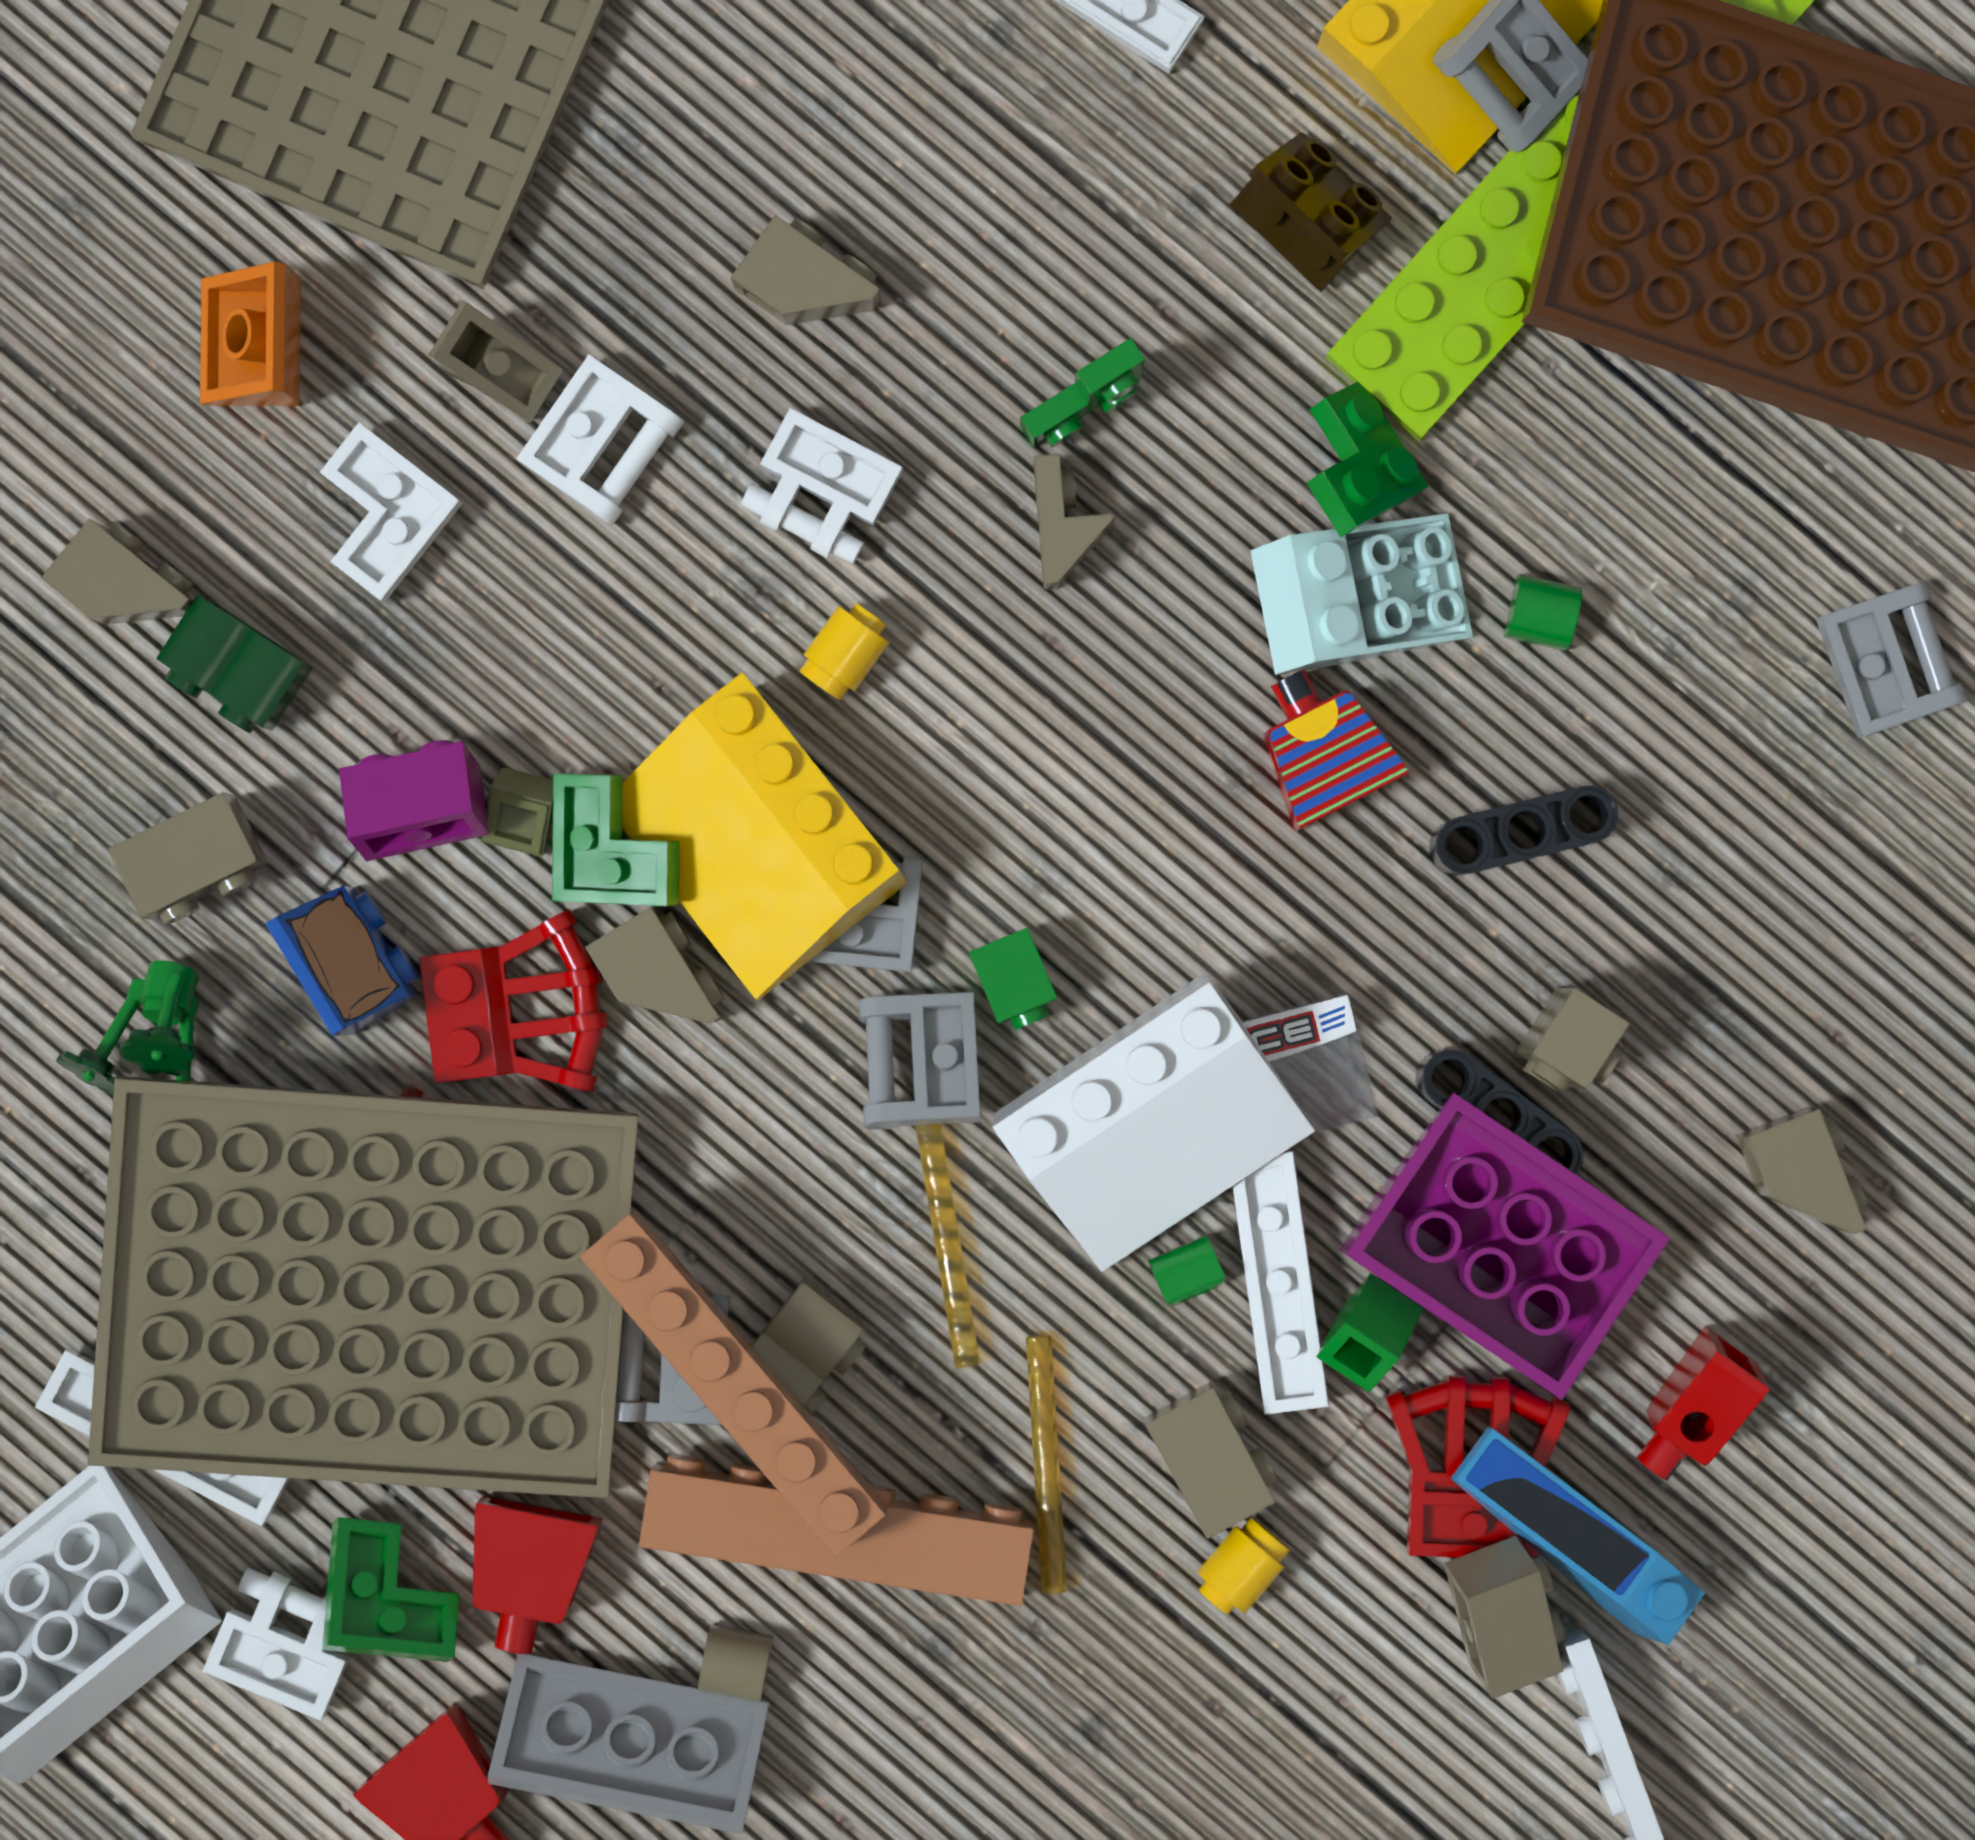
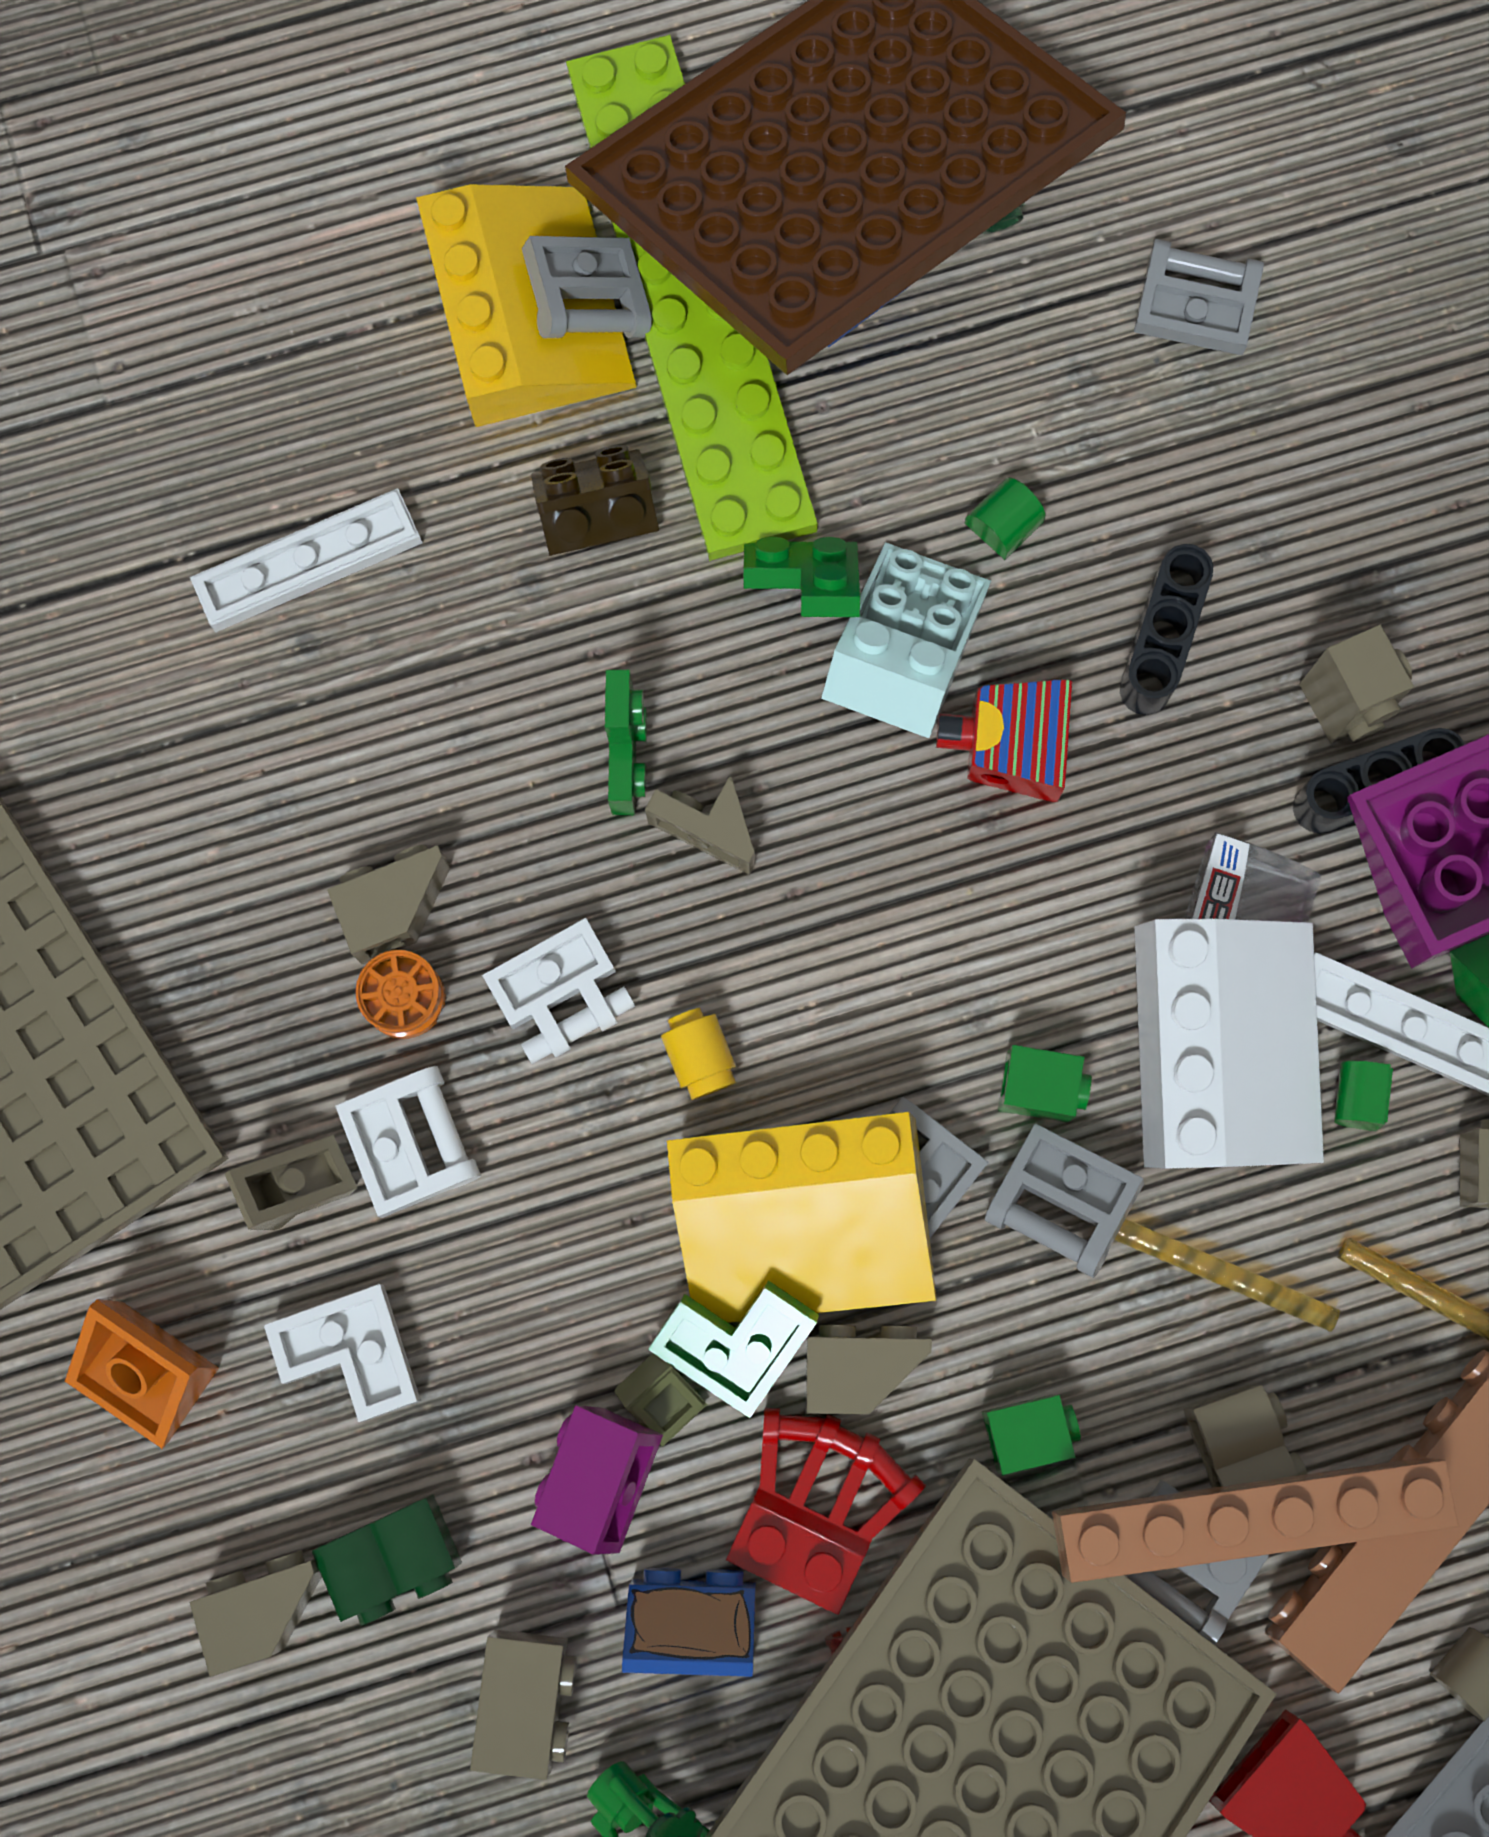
camera: 55 degrees left, 10 degrees down
(695, 1155) = (1031, 1433): none -> green brick
(726, 344) = (400, 994): none -> orange wheel

